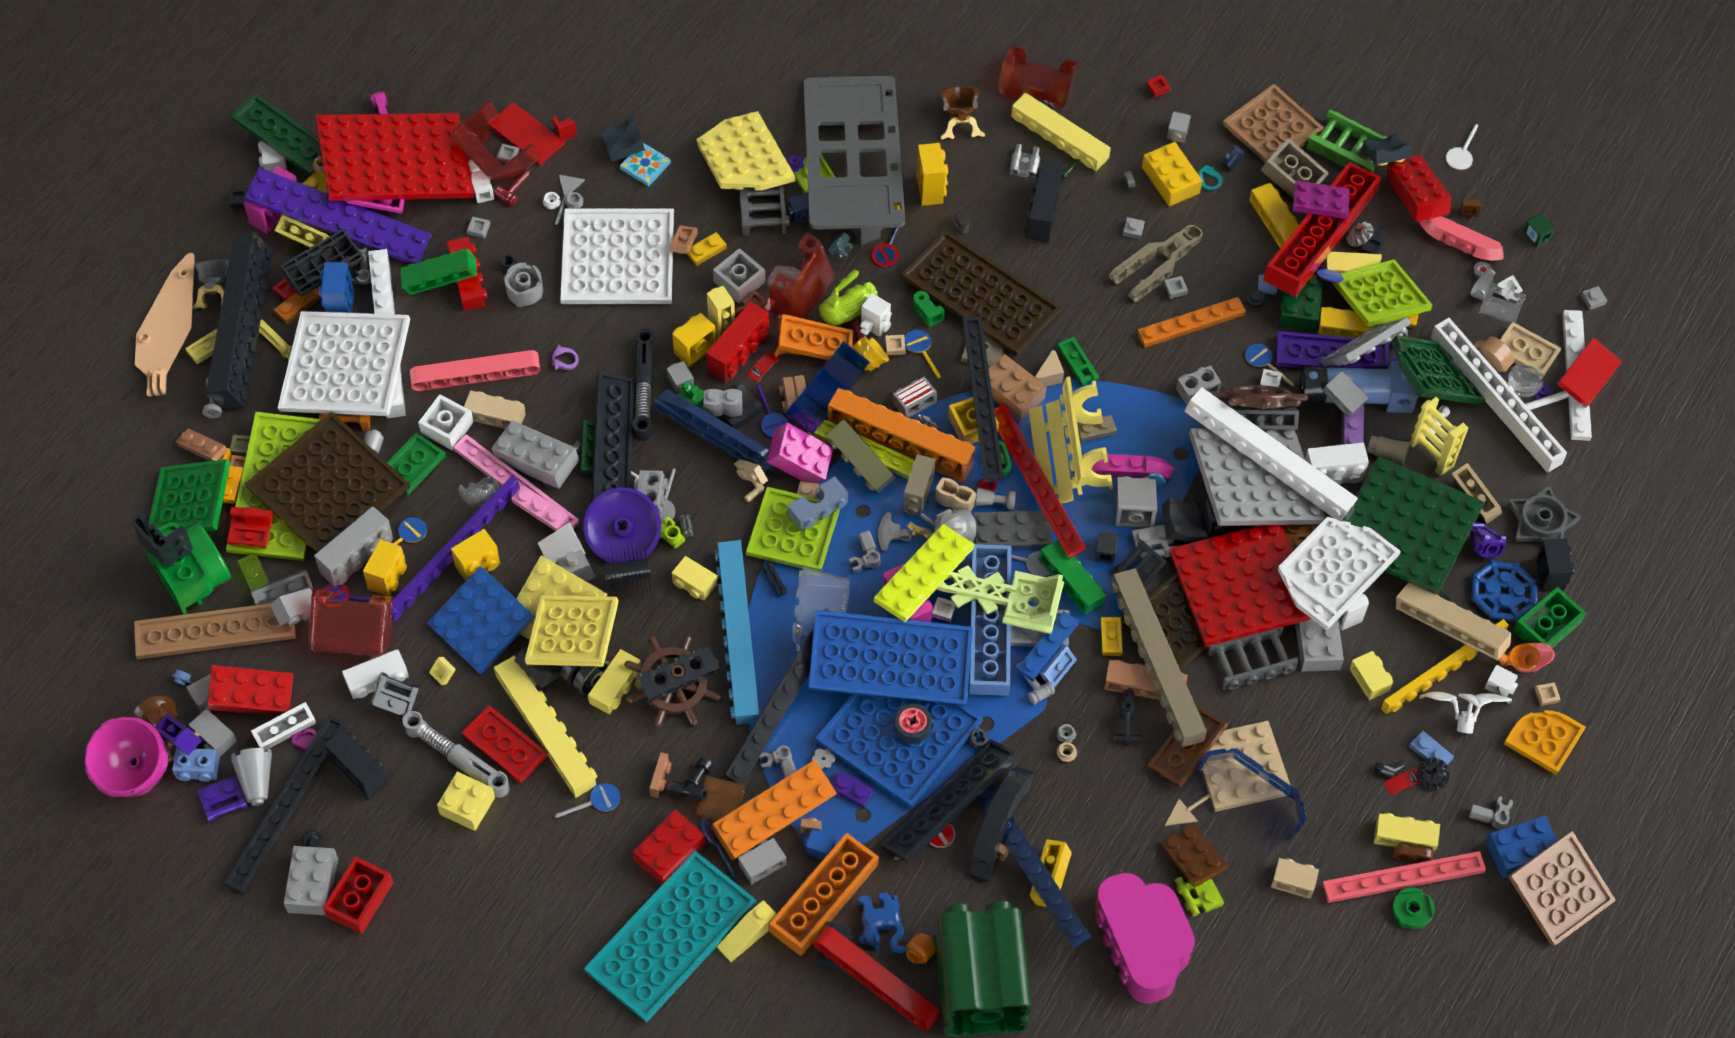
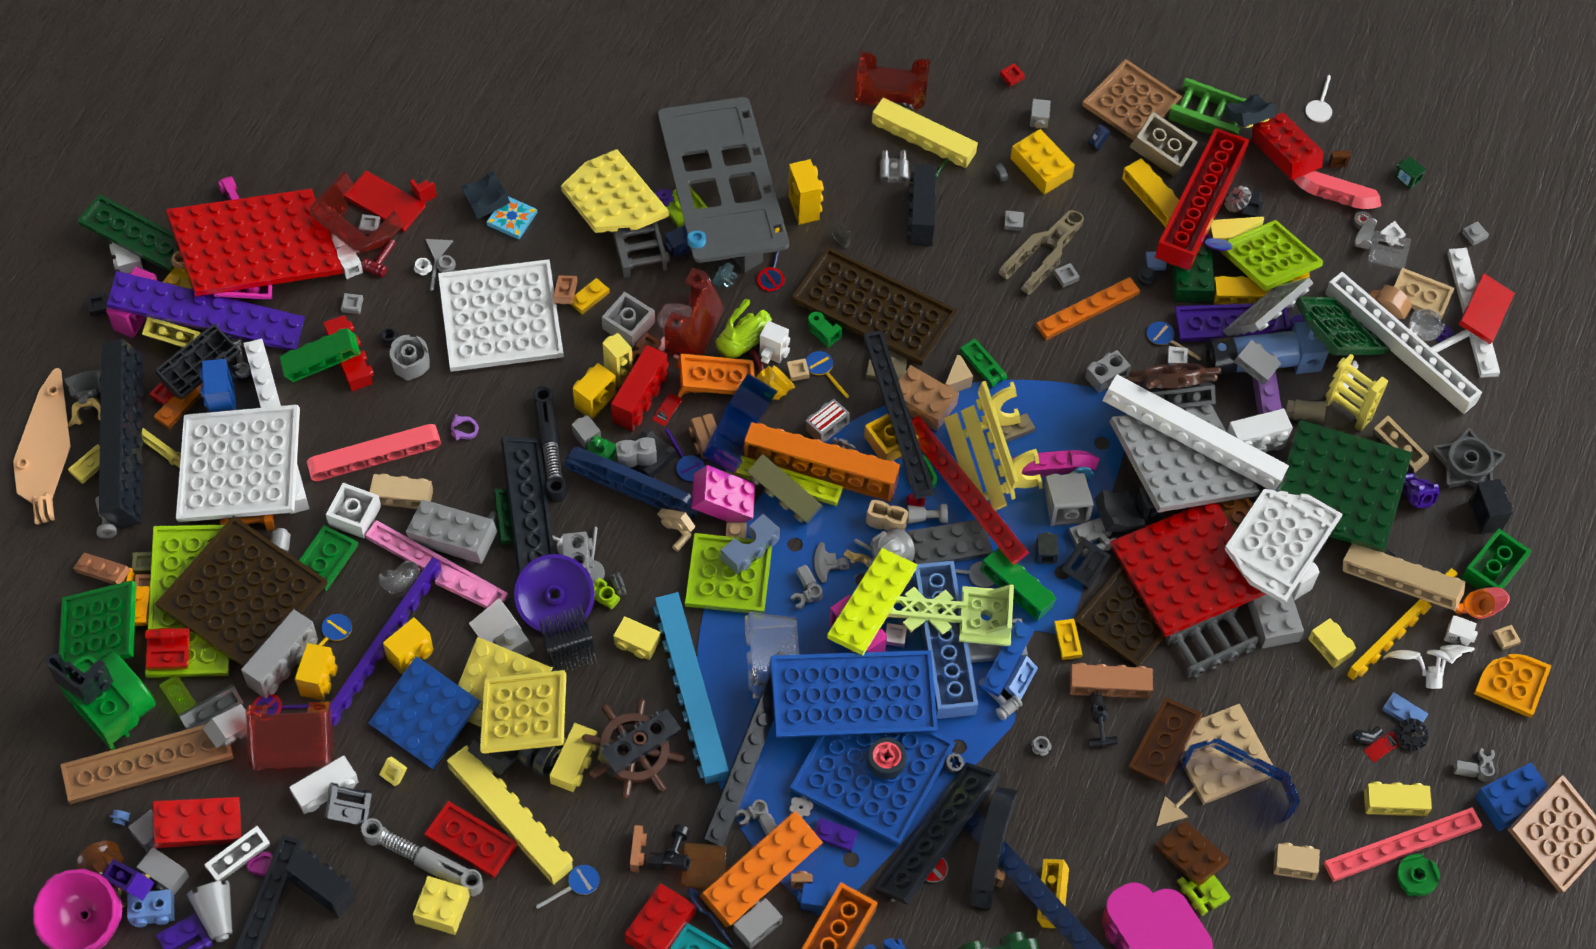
camera: 10 degrees left, 0 degrees up
(774, 579) = (718, 627): black axle -> none
(815, 206) = (696, 239): none -> dark azure tile
(919, 485) = (848, 511): dark tan window -> none
(959, 104) = (819, 117): reddish brown helmet -> none
(1066, 747) = (1047, 760): tan plate -> none
(1158, 658) = (1121, 655): dark tan brick -> none
(1210, 170) = (1078, 153): teal piece -> none
(1321, 199) = (1196, 169): magenta plate -> none
(1419, 854) = (1407, 820): reddish brown plate -> none
(1503, 581) = (1446, 529): blue plate -> none

